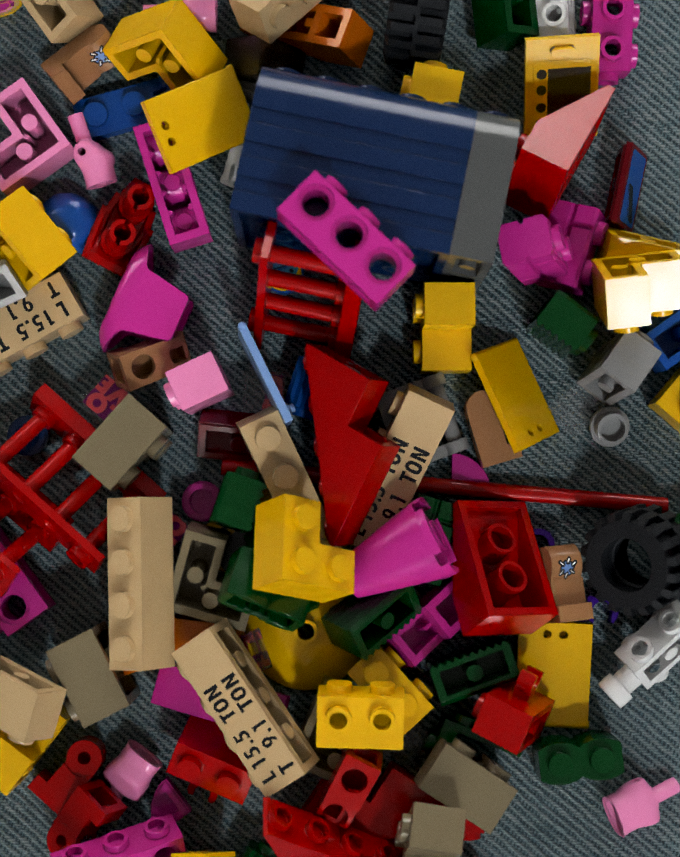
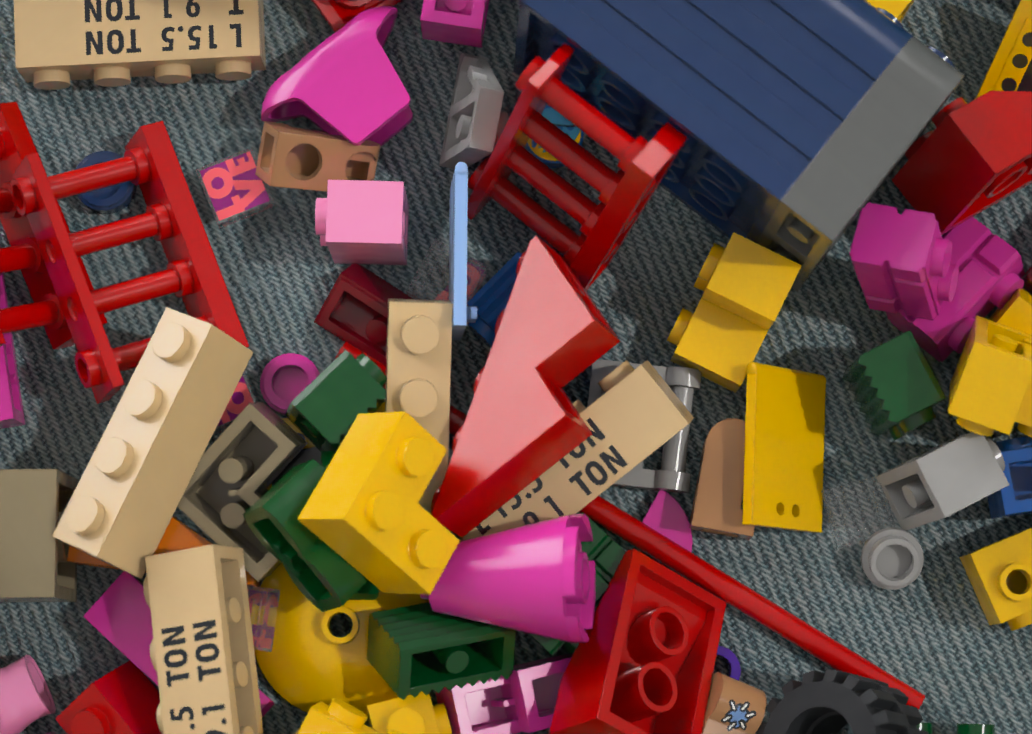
camera: 30 degrees right, 5 degrees down
(122, 443) = (226, 248): dark tan brick -> none
(231, 286) = (474, 113): none -> light grey wing
(347, 263) = (639, 144): dark pink brick -> none

